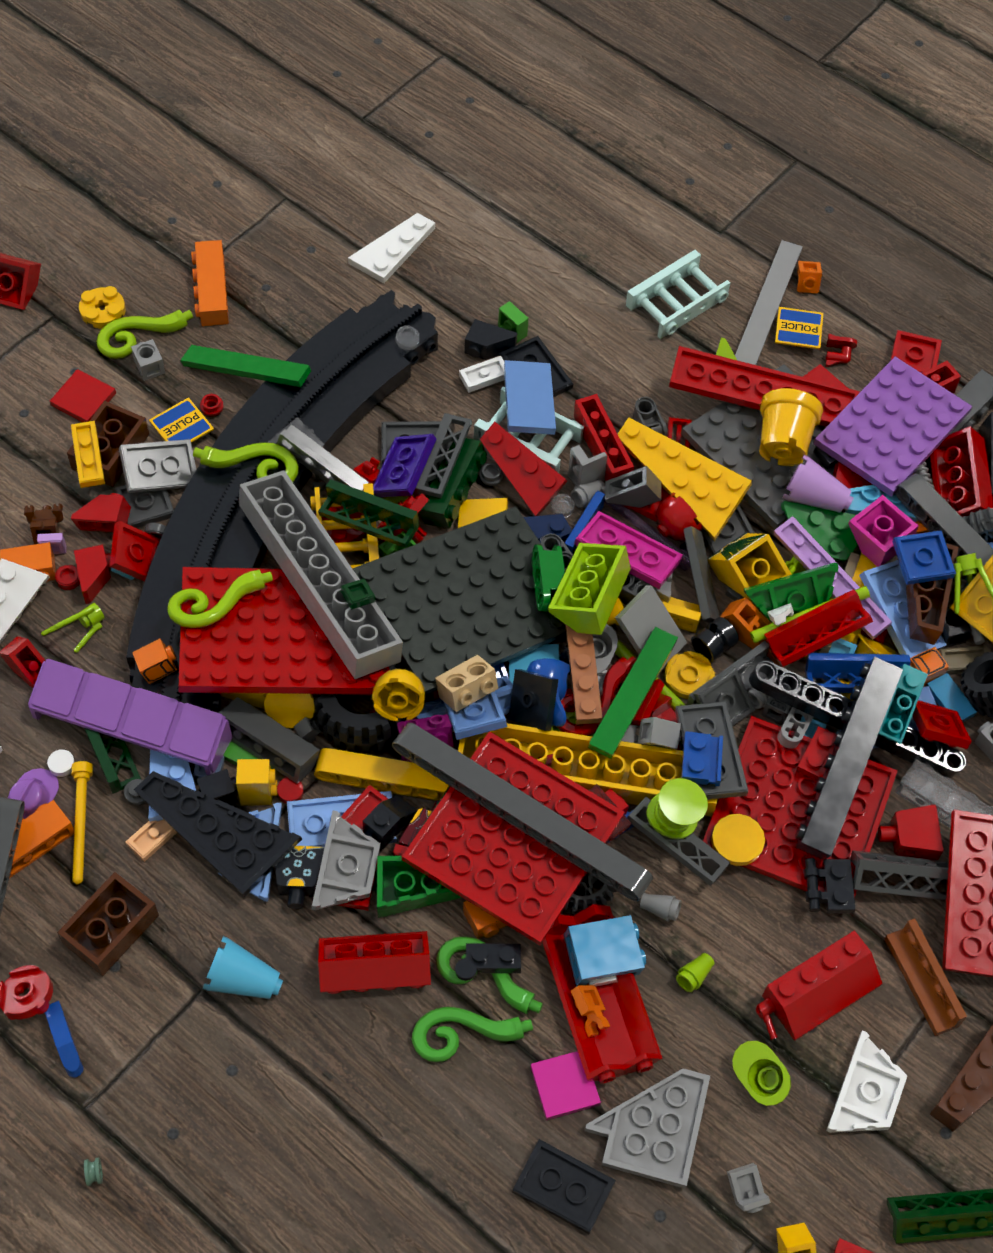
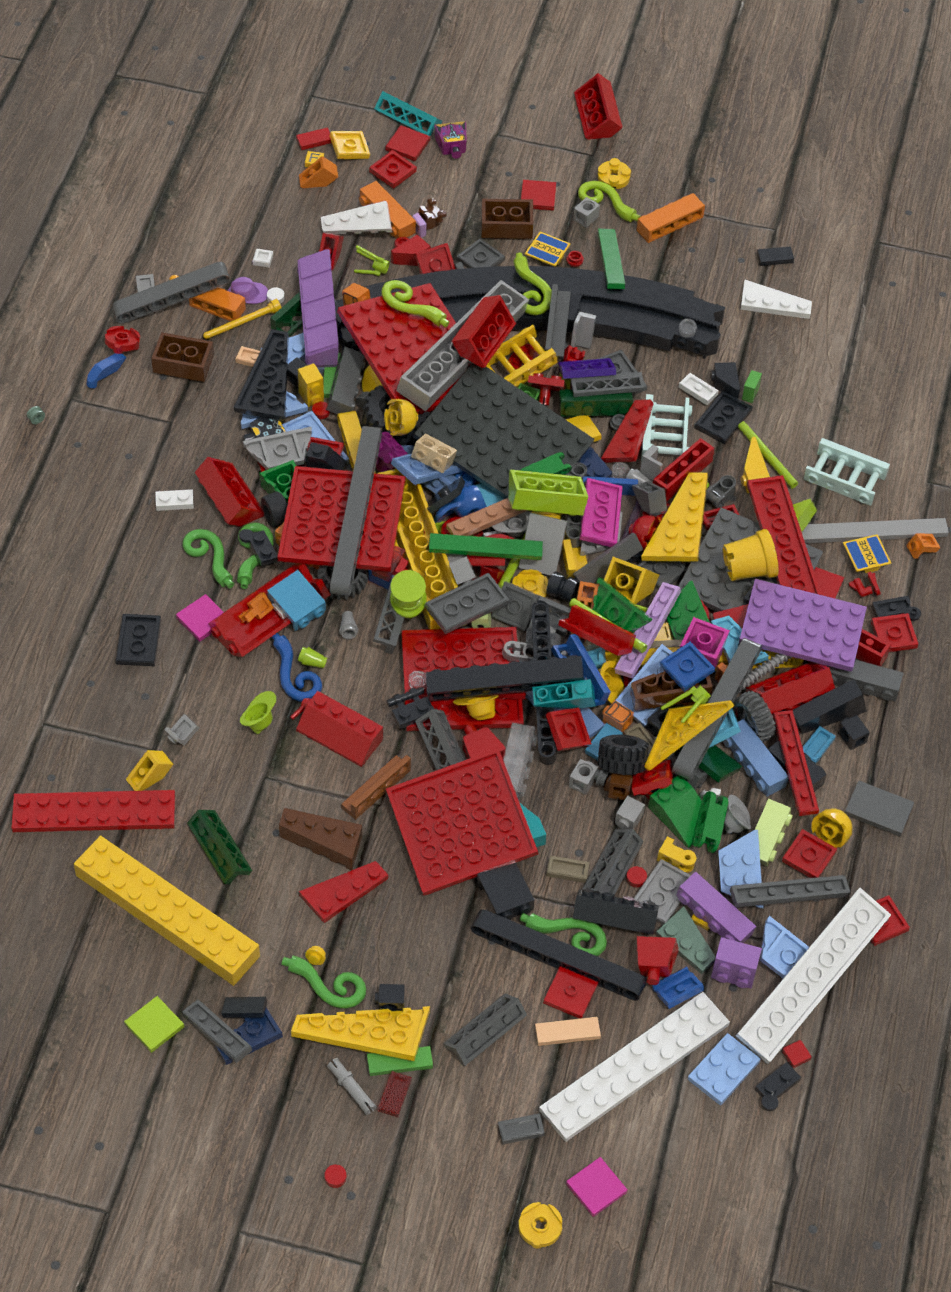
camera: 65 degrees right, 5 degrees down
(87, 454) = (486, 207): yellow tile -> none
(102, 513) = (456, 238): red slope -> none
(157, 465) = (503, 244): light grey tile -> none
(241, 973) = (185, 427): medium azure cone -> none
(323, 536) = (484, 331): none -> red slope
(328, 215) = (775, 256): none -> black tile
(341, 441) = (583, 330): none -> light grey panel
(345, 1039) = (174, 500): none -> white plate
(357, 593) = (451, 362): dark green tile -> none
(375, 507) = (533, 356): dark green fence -> none
(438, 914) = (274, 508): none -> black tyre
(529, 397) = (687, 413): medium blue tile -> none
(613, 354) = (768, 455): none -> lime piece
(630, 374) = (755, 465): none -> yellow slope
(656, 1129) = (197, 672): light grey wing -> none
(672, 1000) = (285, 650): none -> blue plant
(702, 758) = (453, 595): blue plate -> none
(738, 839) = (415, 646): yellow tile -> none
(779, 614) = (590, 604): white tile -> none
(791, 859) = (417, 679): none -> clear tile
(817, 488) = (712, 590): lavender cone -> none
(867, 805) = (479, 707): none -> yellow piece
(868, 1090) = (280, 776): white wing -> none
(882, 339) = (895, 606): none -> black hinge

